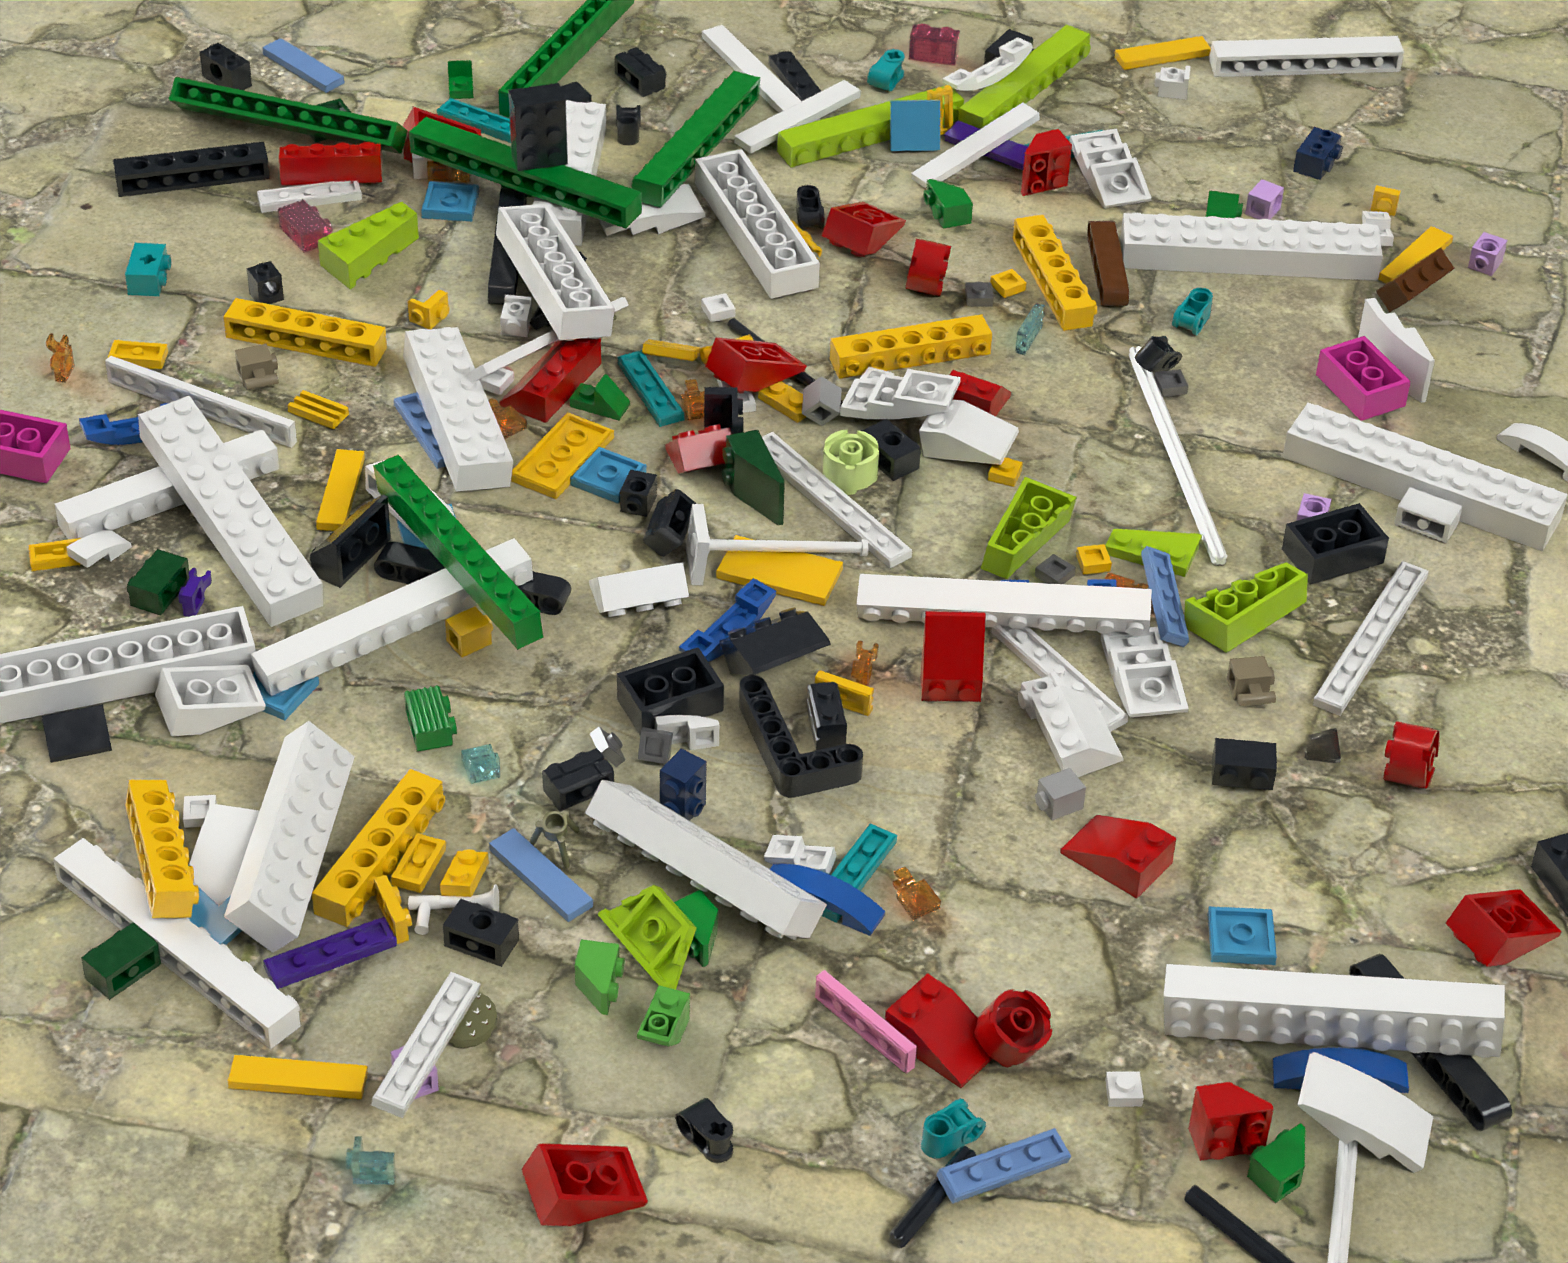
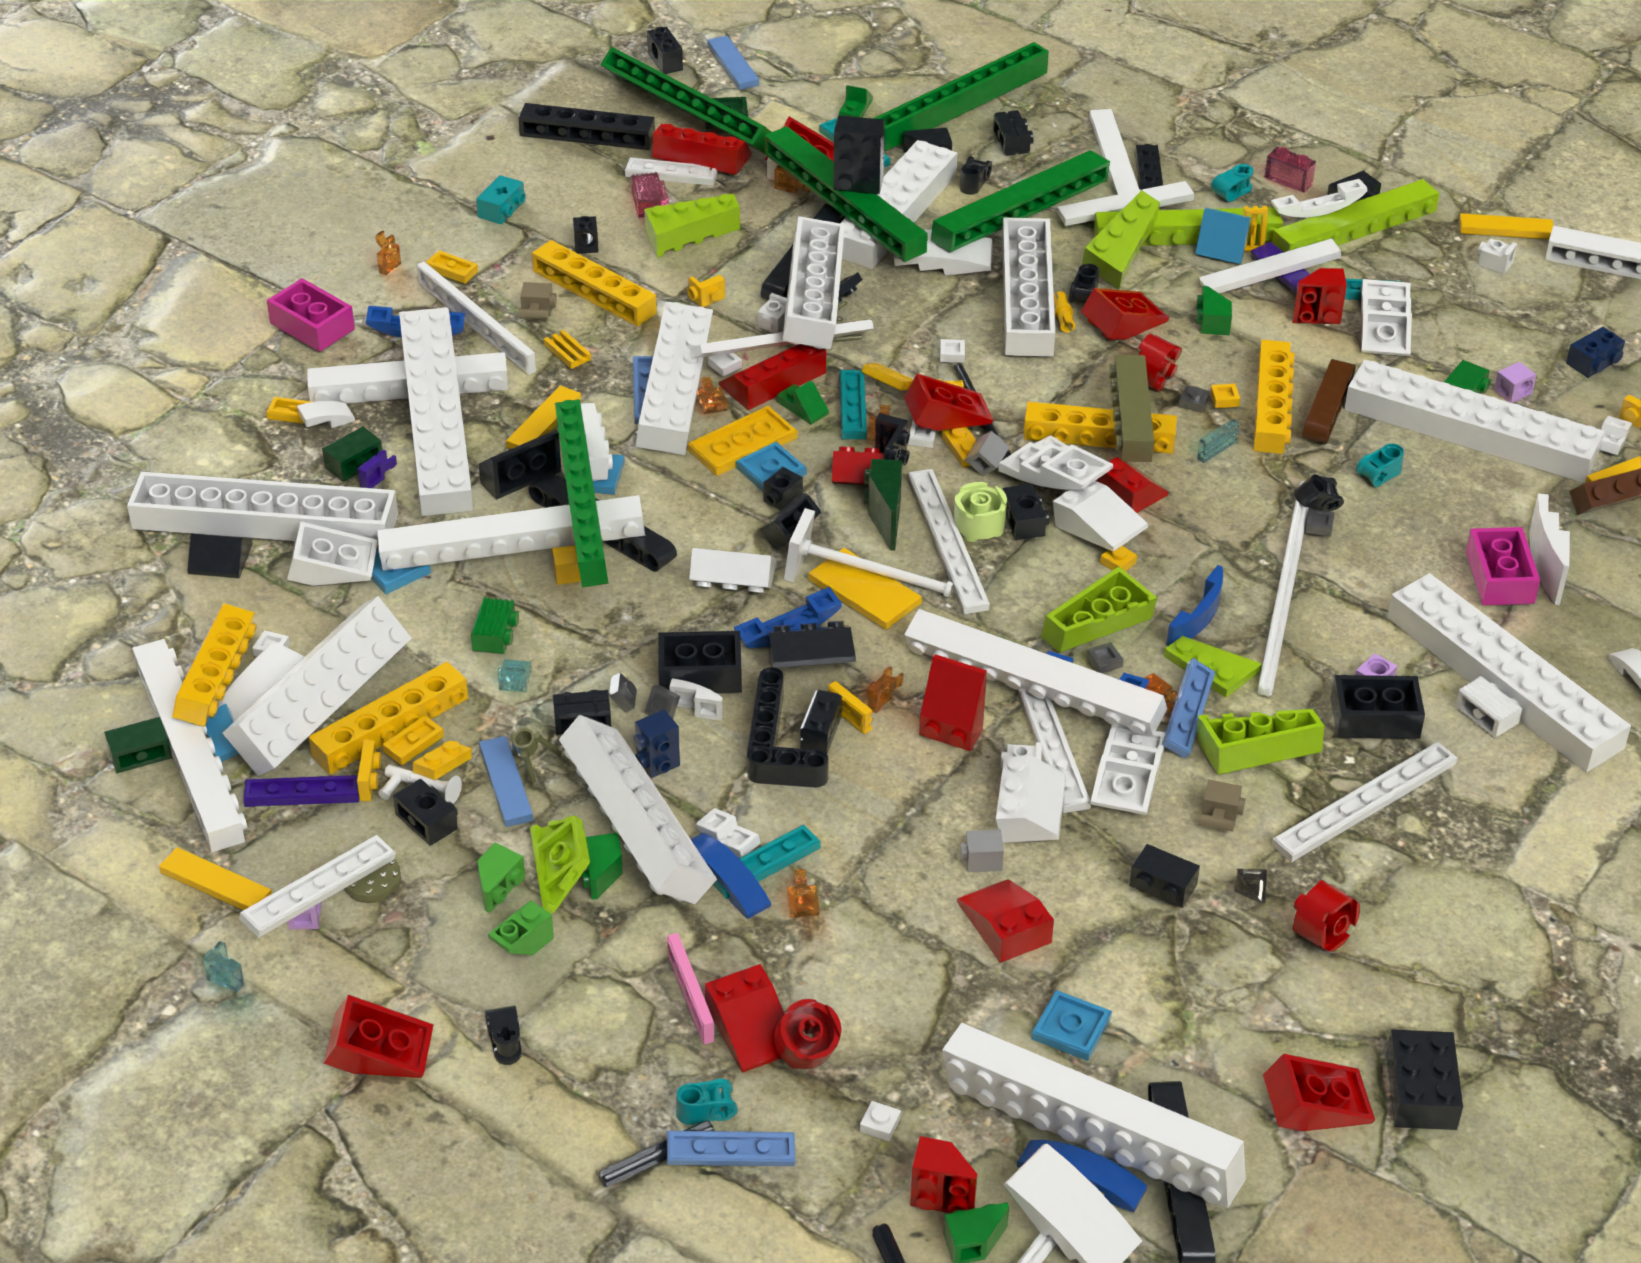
camera: 25 degrees right, 0 degrees up
(450, 201) = (783, 204): dark azure tile -> none
(825, 152) = (1122, 238): none -> lime wedge
(942, 317) = (1131, 408): none -> olive brick
(1093, 559) = (1146, 657): yellow plate -> none
(1116, 479) = (1192, 624): none -> blue slope

